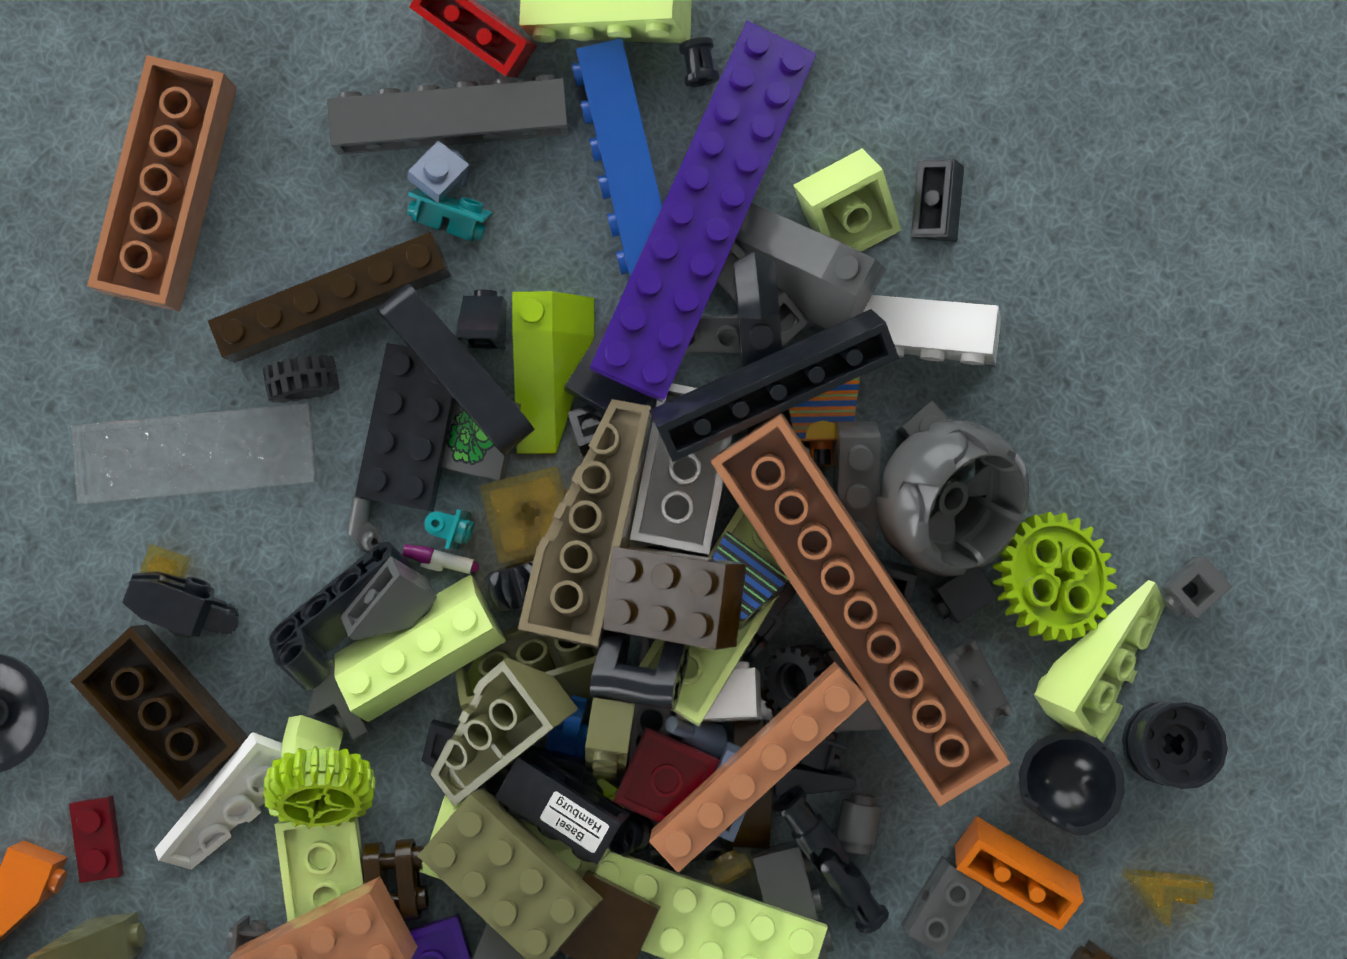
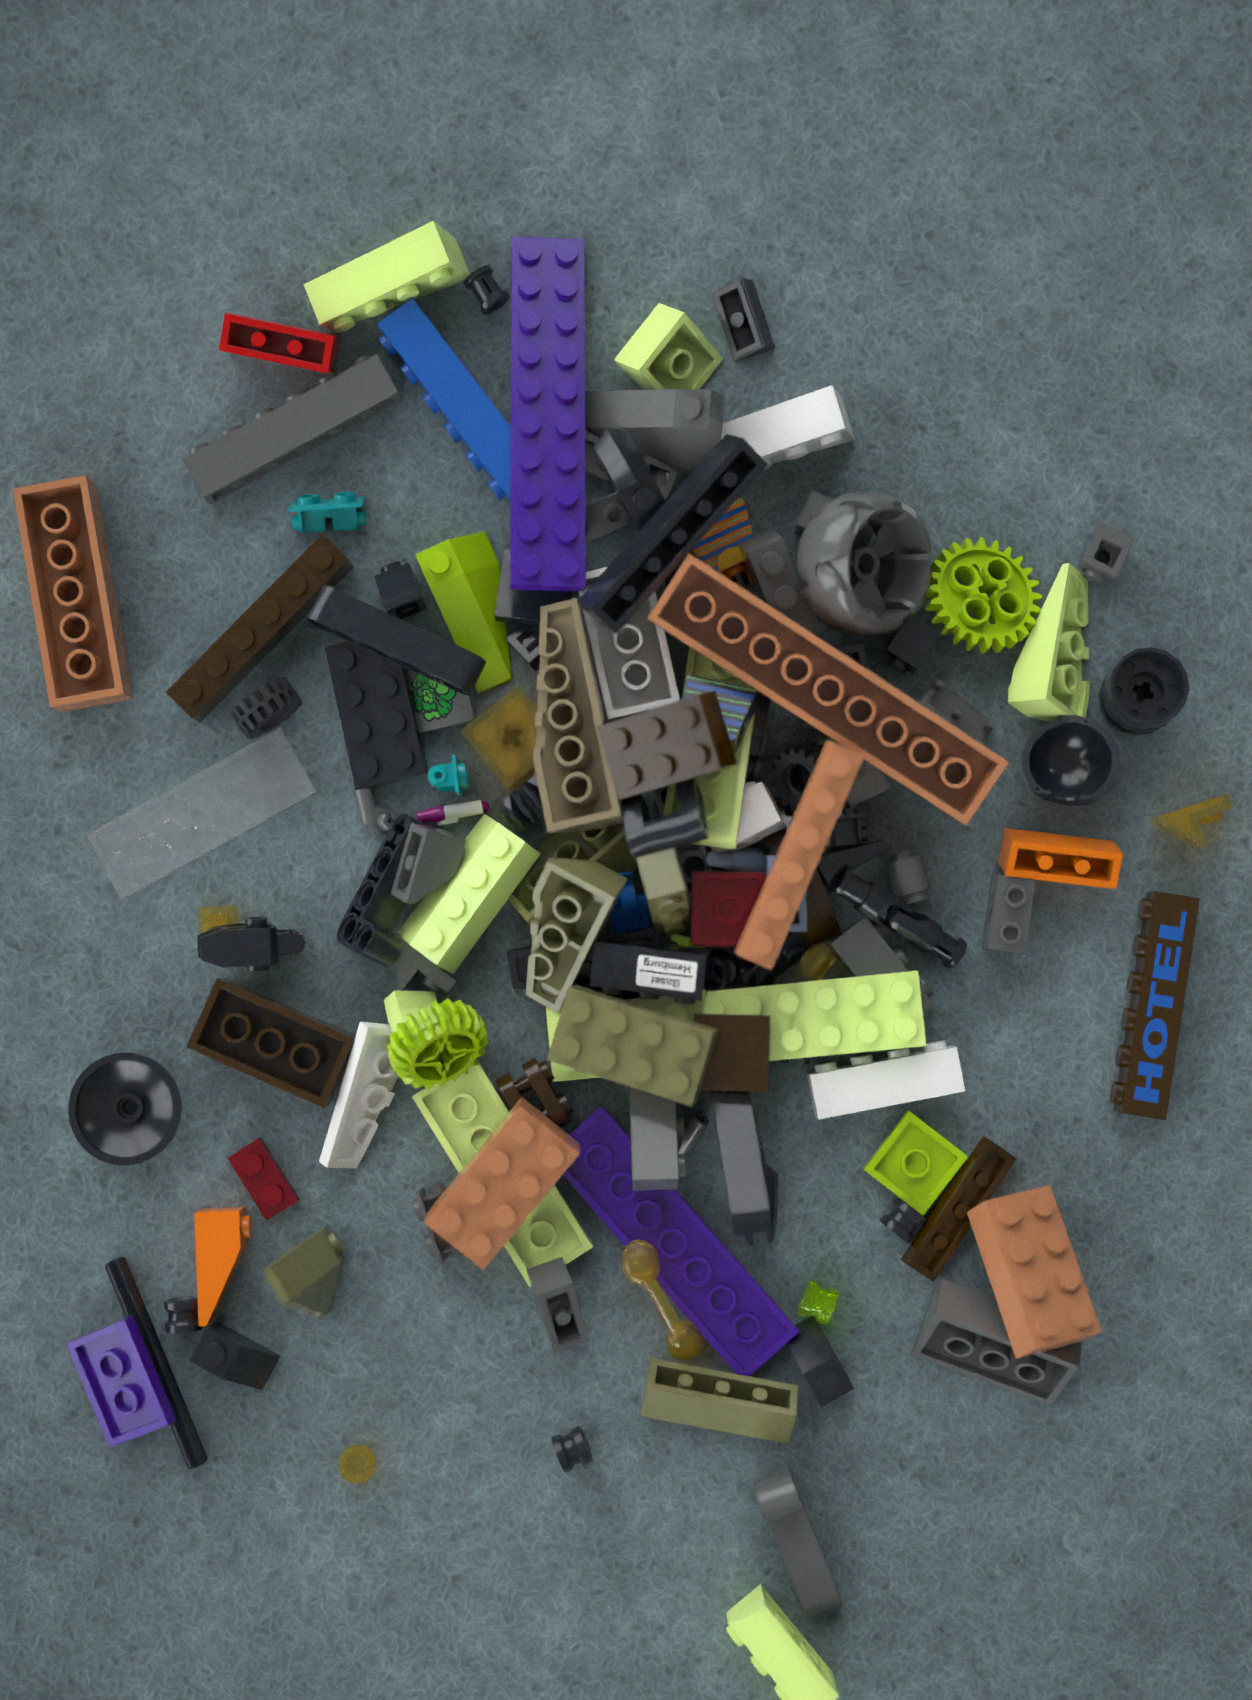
camera: 20 degrees left, 0 degrees up
(439, 171) = (306, 480): sand blue bracket -> none

